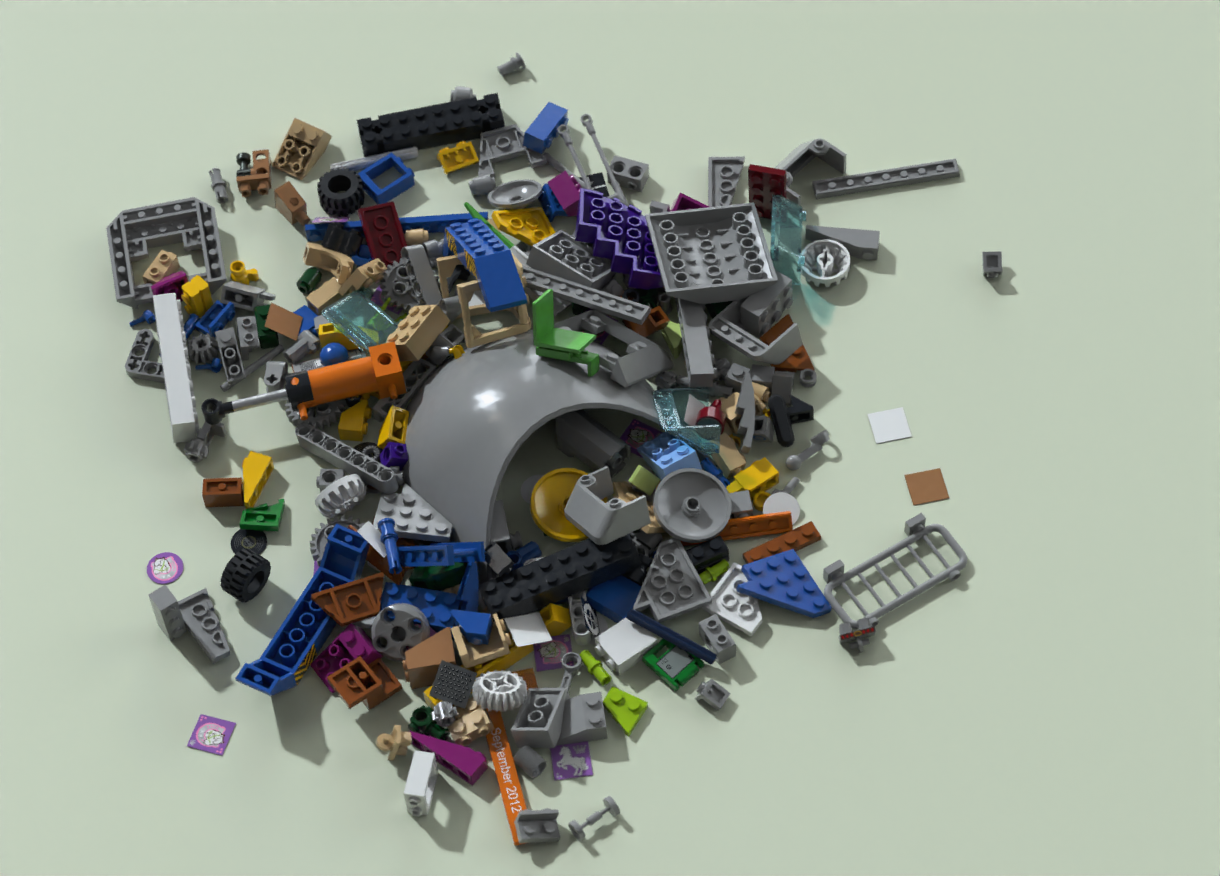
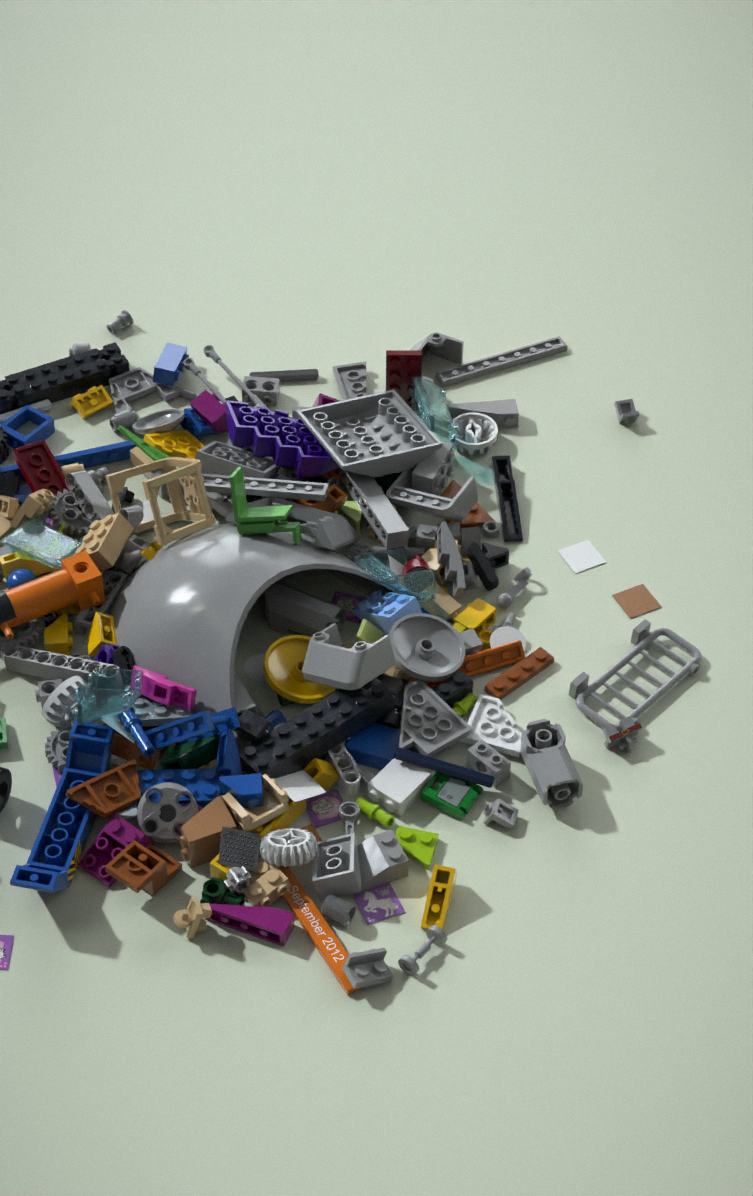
camera: 20 degrees left, 10 degrees down
(377, 504) = (110, 694): none -> clear light blue windscreen
(404, 467) = (123, 658): none -> black beam
(421, 783) = (233, 950): white window -> none
(427, 504) = (166, 691): none -> dark pink slope
(487, 261) = (166, 456): blue slope -> none
(625, 768) = (439, 896): none -> yellow slope
(660, 158) = (287, 375): none -> light grey axle
(772, 652) = (550, 764): none -> light grey brick
(785, 583) = (534, 700): blue wing -> none
(835, 345) = (506, 498): none -> black slope

